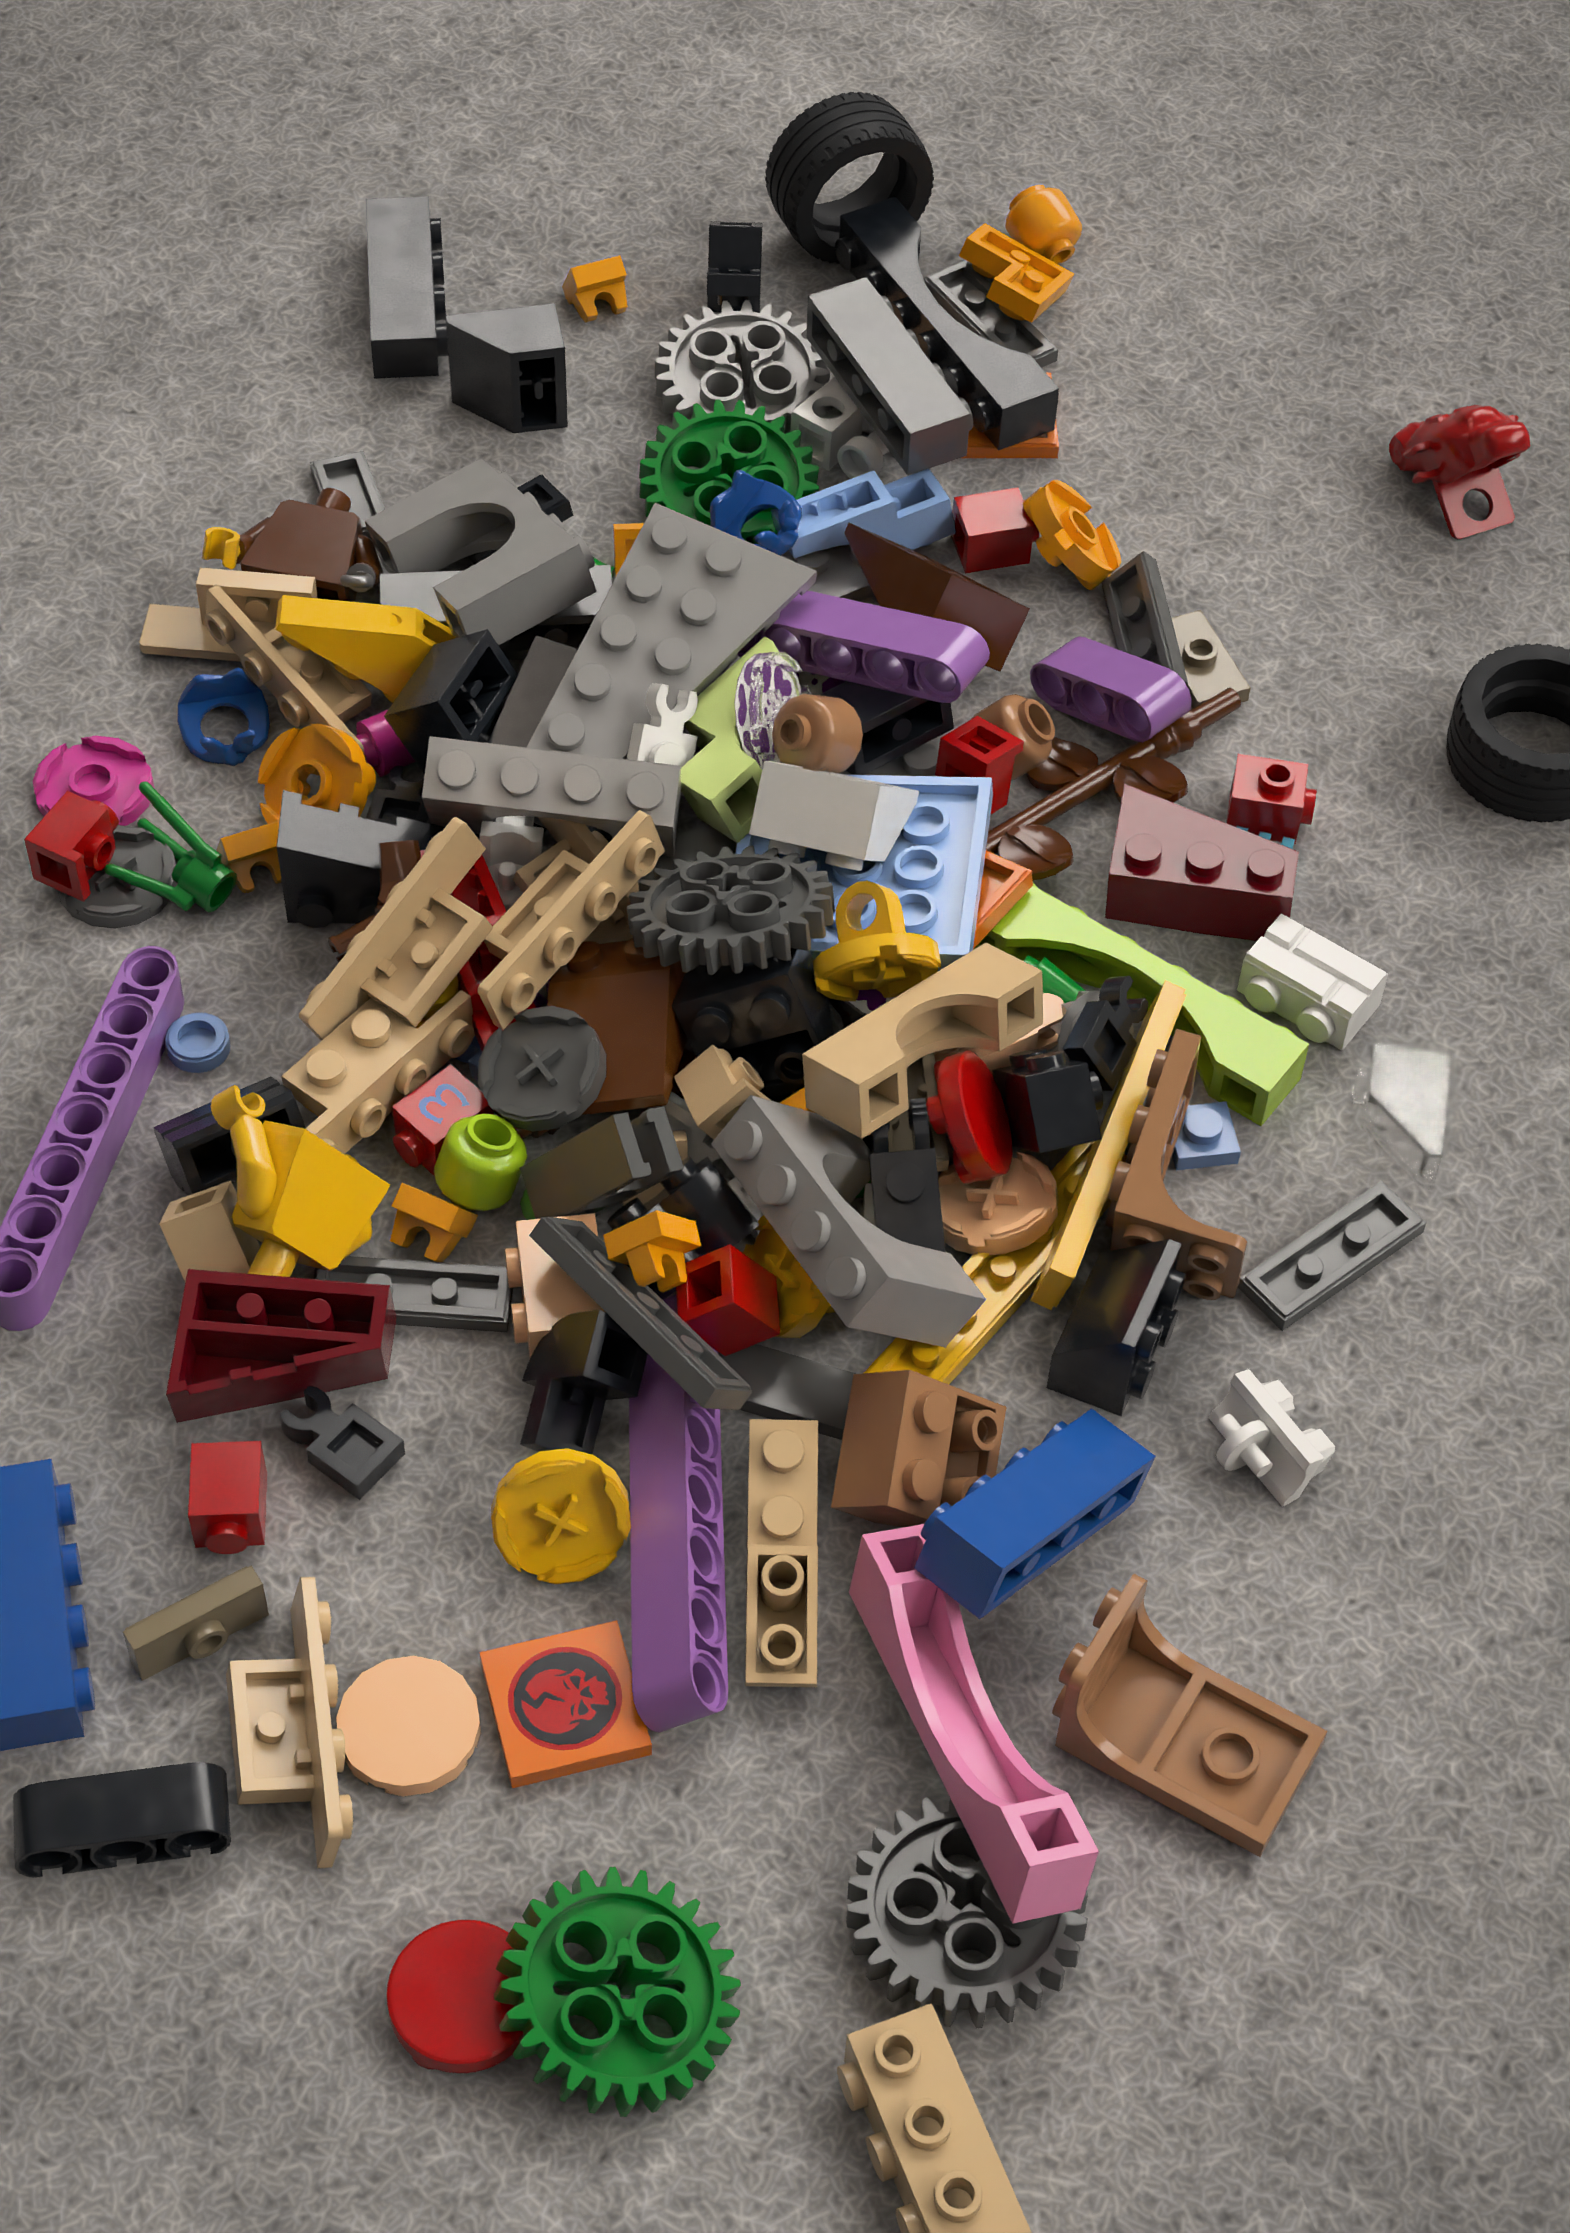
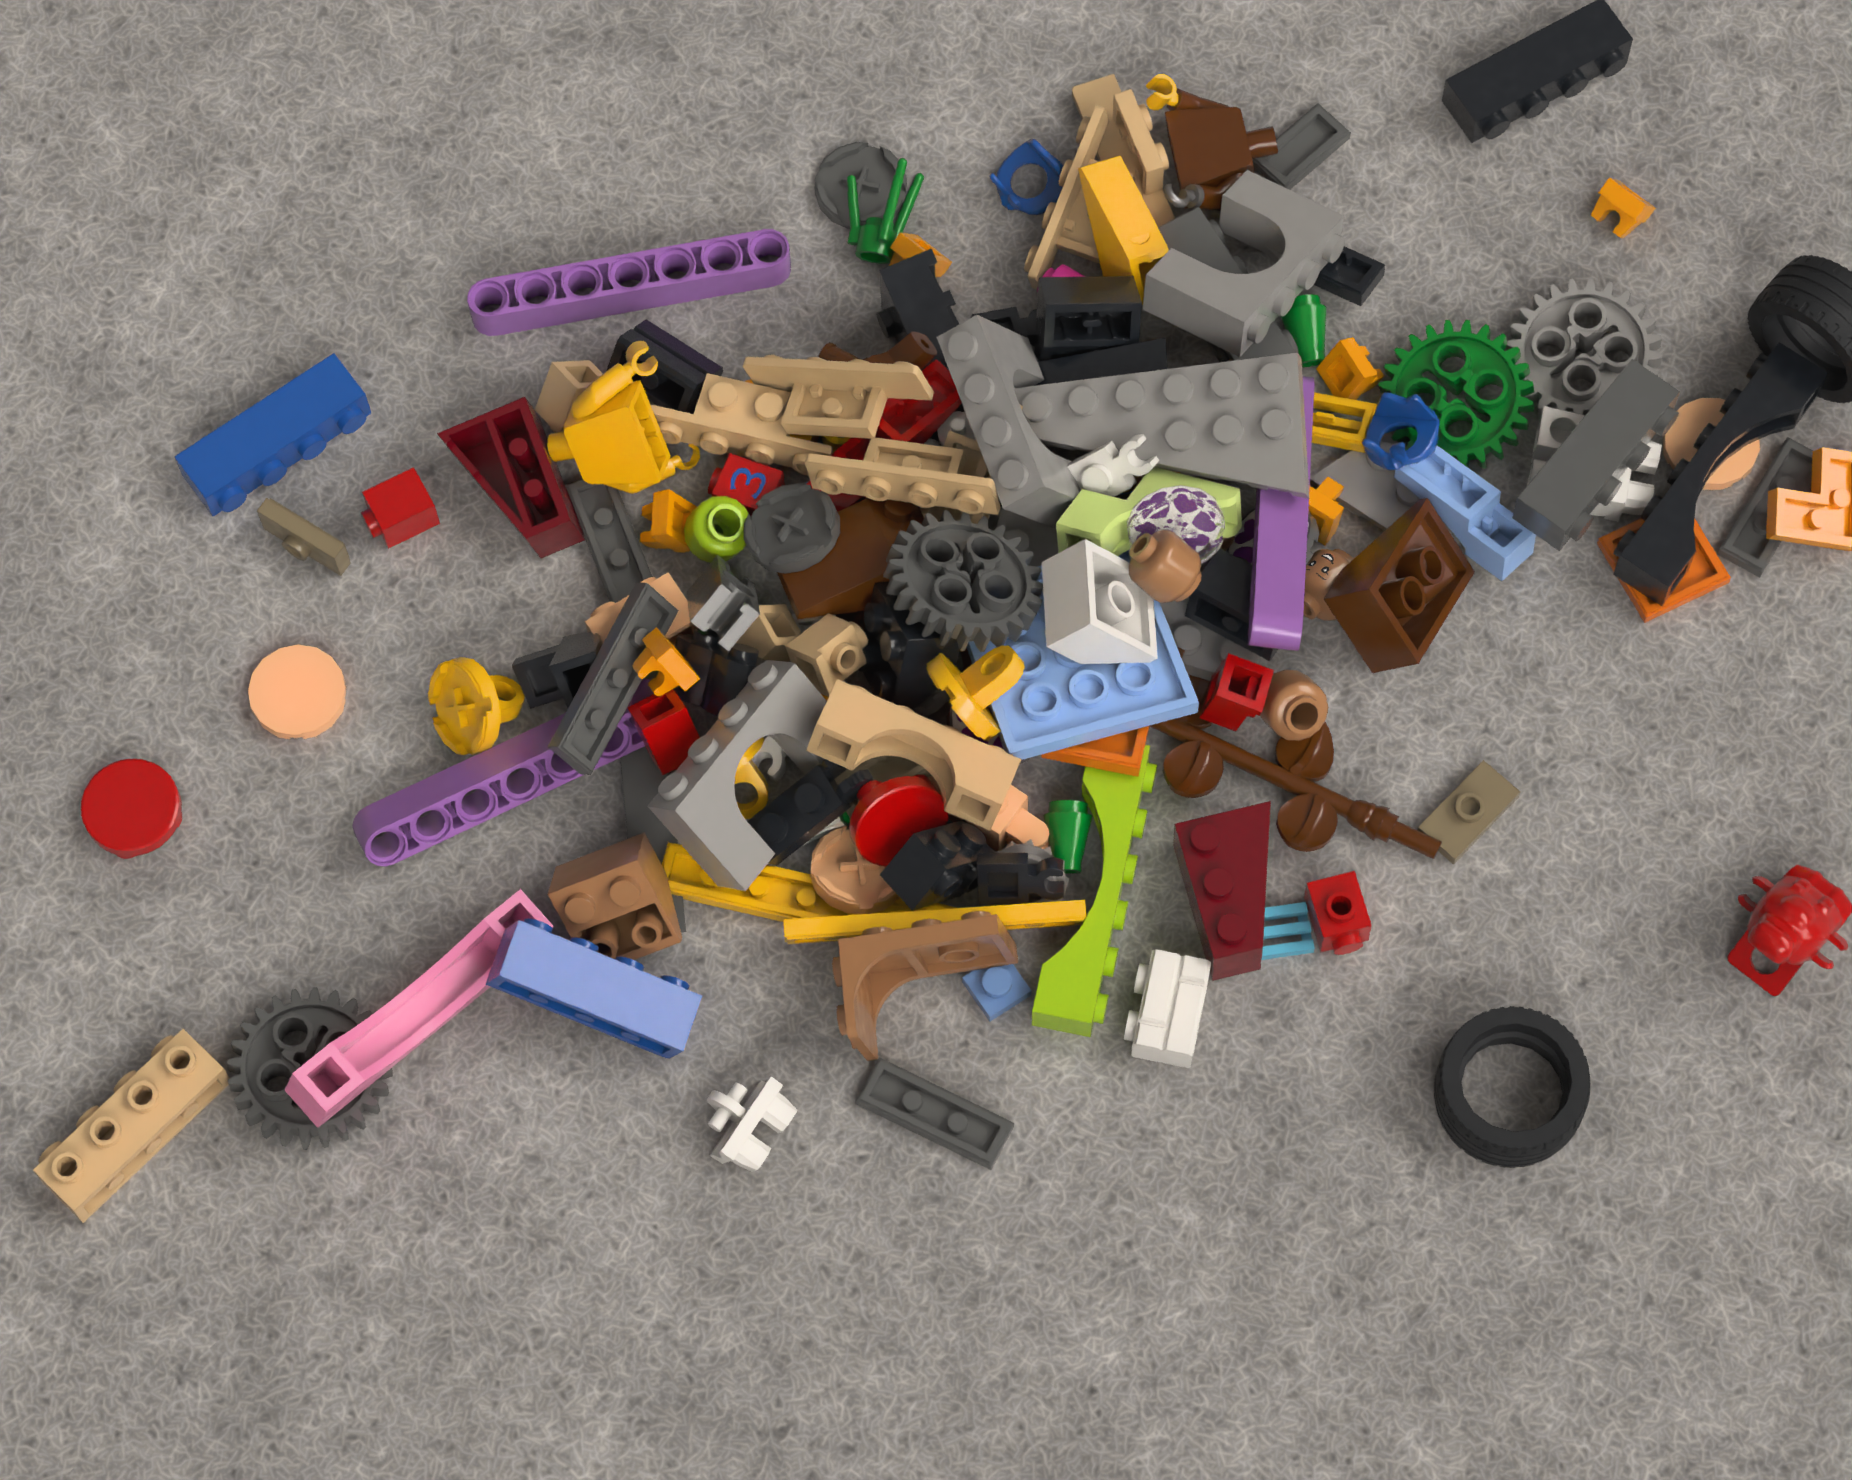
camera: 70 degrees right, 15 degrees up
(72, 844) = (852, 145): red brick -> none
(117, 787) = (933, 144): dark pink tile -> none
(120, 1816) = (159, 564): black beam -> none
(197, 1042) = (746, 310): medium blue tile -> none
(285, 1728) = (256, 621): tan bracket -> none
(320, 752) = (990, 266): light orange plate -> none
(346, 1447) = (473, 559): black plate -> none
(509, 366) = (1478, 192): black slope -> none
(566, 1707) = (350, 771): tile -> none
(626, 2055) = (205, 867): green gear -> none
(734, 264) = (1698, 295): black brick -> none
(782, 1554) = (508, 855): tan slope -> none
(992, 530) = (1515, 606): red brick -> none
(1069, 534) = (1514, 649): light orange plate -> none
(1111, 688) = (1379, 755): medium lavender beam -> none
(1118, 1325) = (781, 989): black slope -> none
(1142, 613) = (1467, 758): dark grey tile -> none
(1180, 1727) = (494, 1145): medium nougat bracket -> none
(1405, 1107) = (1084, 1116): clear slope -> none

